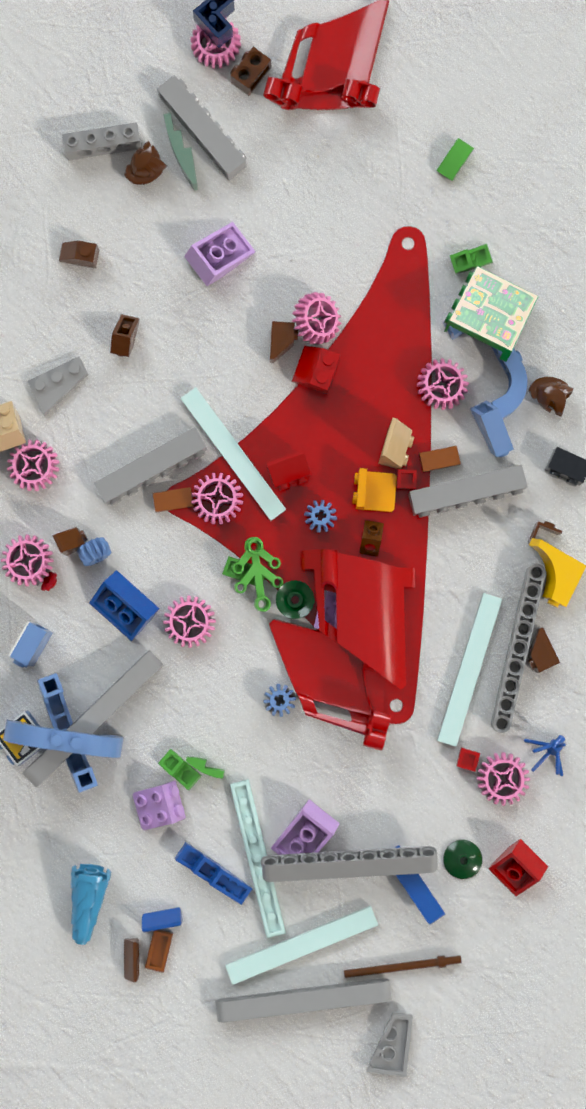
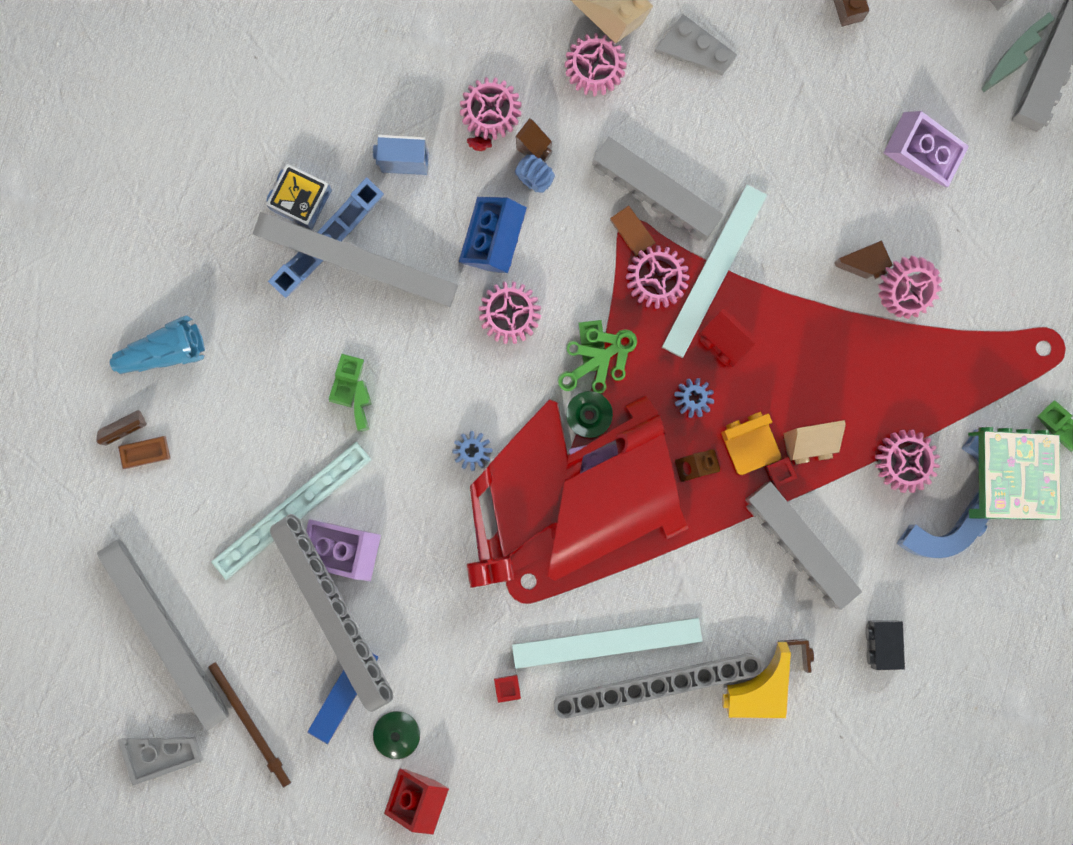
camera: 65 degrees right, 0 degrees up
(63, 740) = (316, 240): medium blue arch -> none
(124, 335) = (784, 91): reddish brown slope -> none
(145, 165) = (982, 21): reddish brown helmet -> none
(159, 806) = (297, 377): lavender bracket -> none
(161, 919) = (177, 439): blue slope -> none
(213, 873) = (252, 470): blue slope -> none
(301, 945) = (221, 603): light aqua tile -> none
(316, 368) = (854, 315): red slope -> none
(439, 458) = (822, 498): dark orange tile -> none
(492, 428) = (885, 540): medium blue slope -> none
(508, 771) = (494, 736): bright pink gear -> none
(541, 652) = (664, 714): reddish brown slope -> none
(551, 392) = (958, 586): reddish brown helmet -> none
(553, 748) = (564, 777): blue plant -> none

